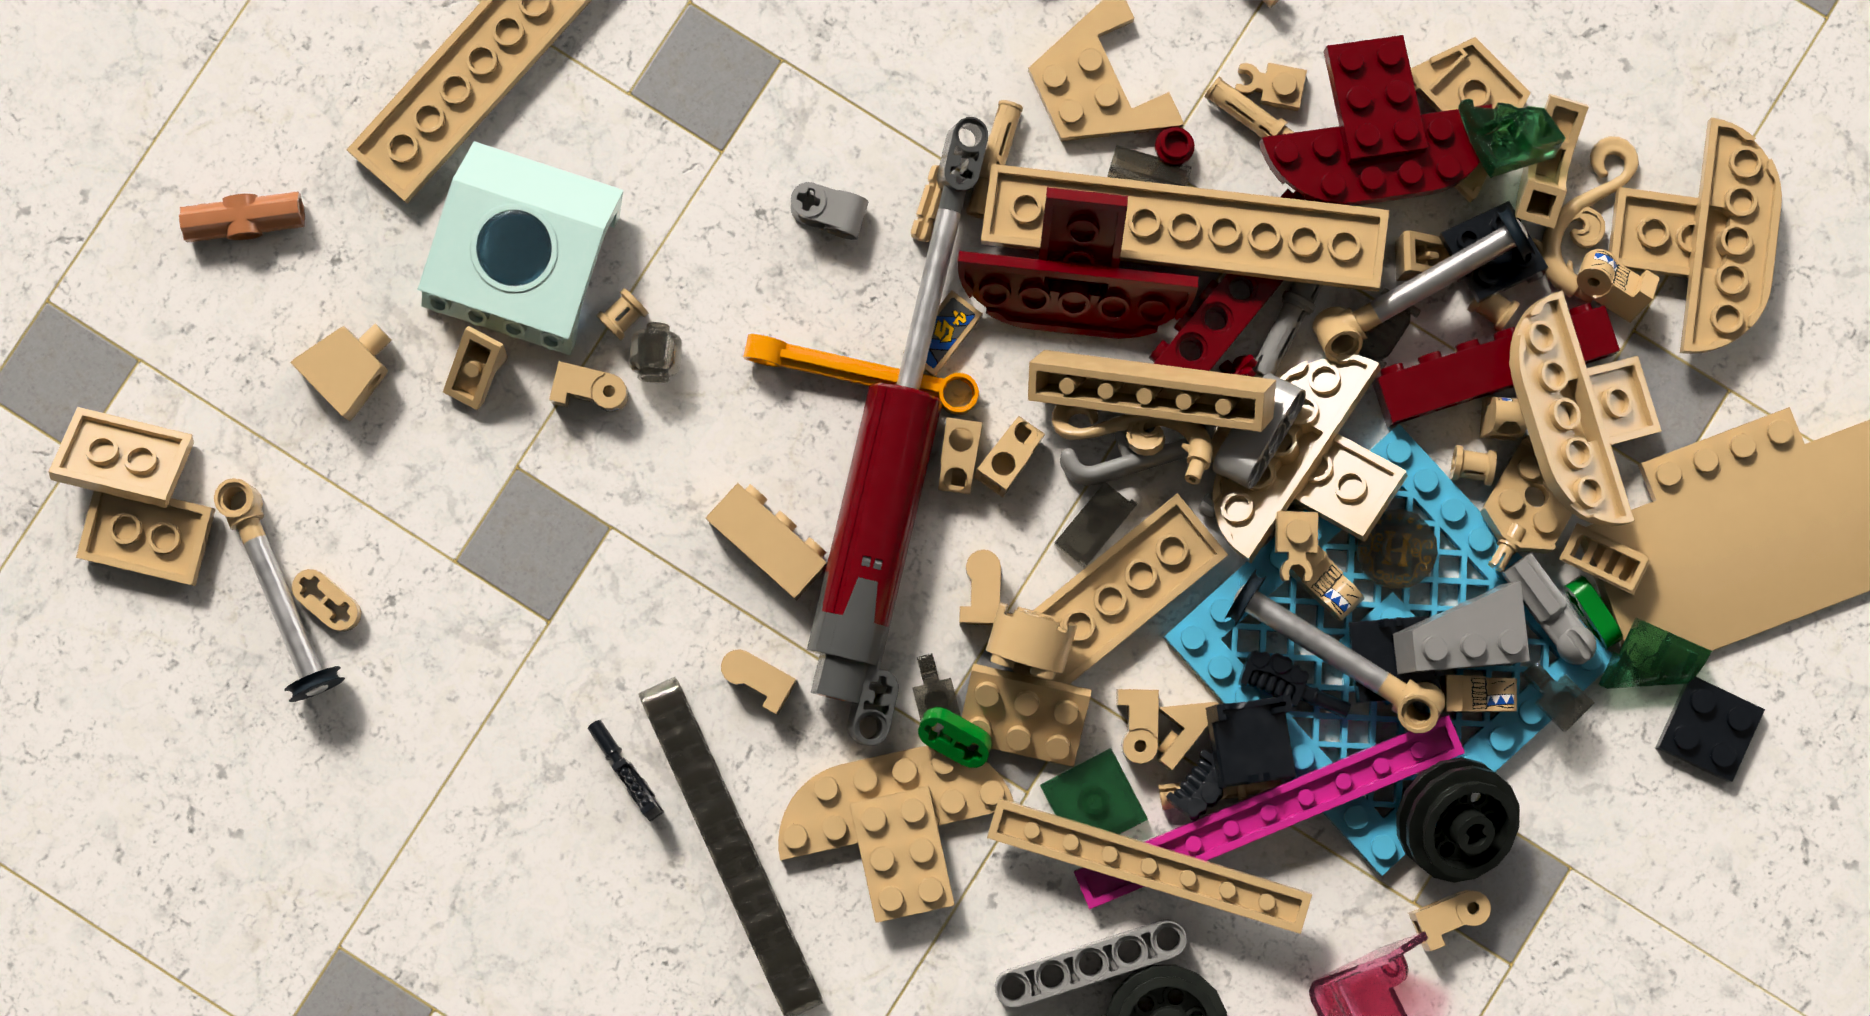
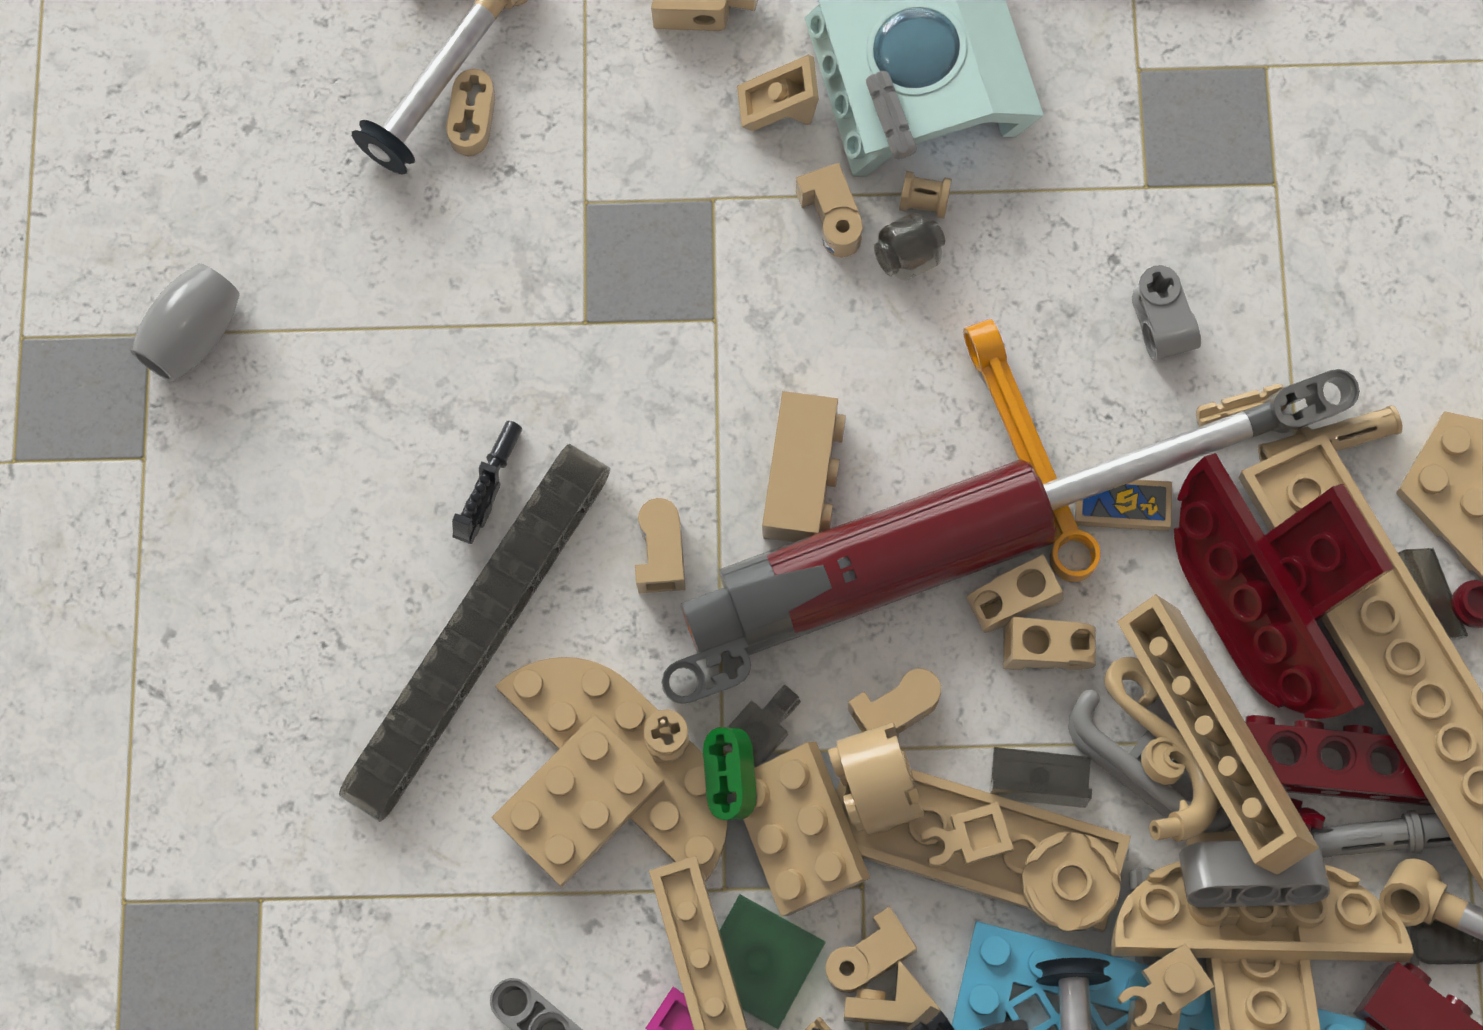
camera: 60 degrees right, 10 degrees down
(355, 915) = (185, 322): none -> light grey piece
(554, 302) = (891, 115): none -> light grey axle
(895, 753) = (676, 725): none -> tan bush
(1110, 598) = (976, 834): none -> tan plate
(1182, 555) = (1071, 881): none -> tan tile

